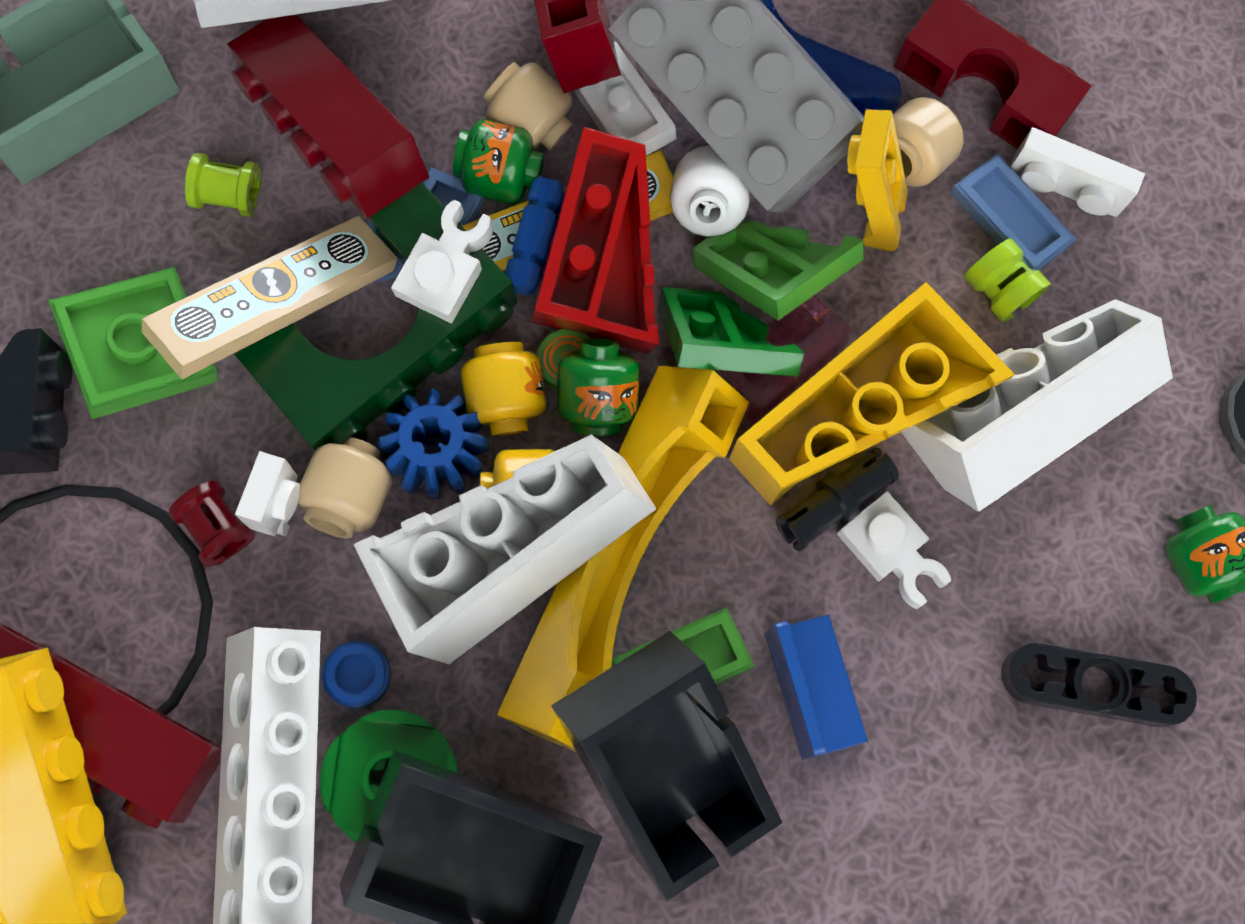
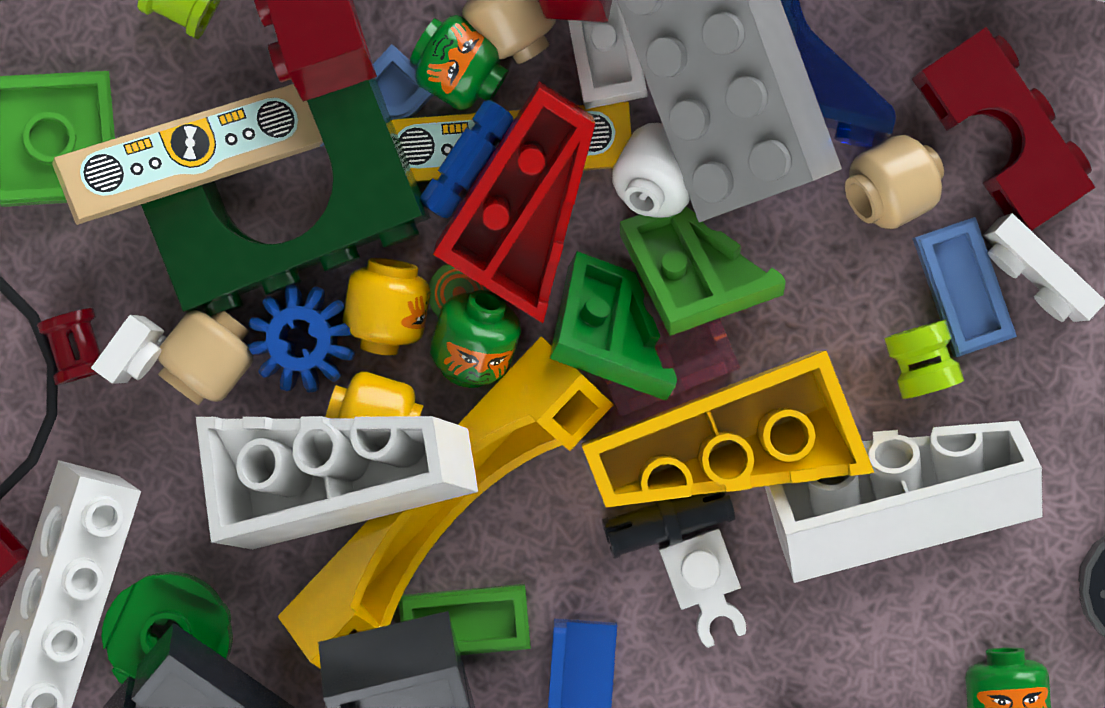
camera: 30 degrees right, 15 degrees up
(356, 675) = (166, 529): blue tile -> none
(441, 271) = (355, 184): white plate -> none
(880, 178) = (821, 228): yellow plate -> none

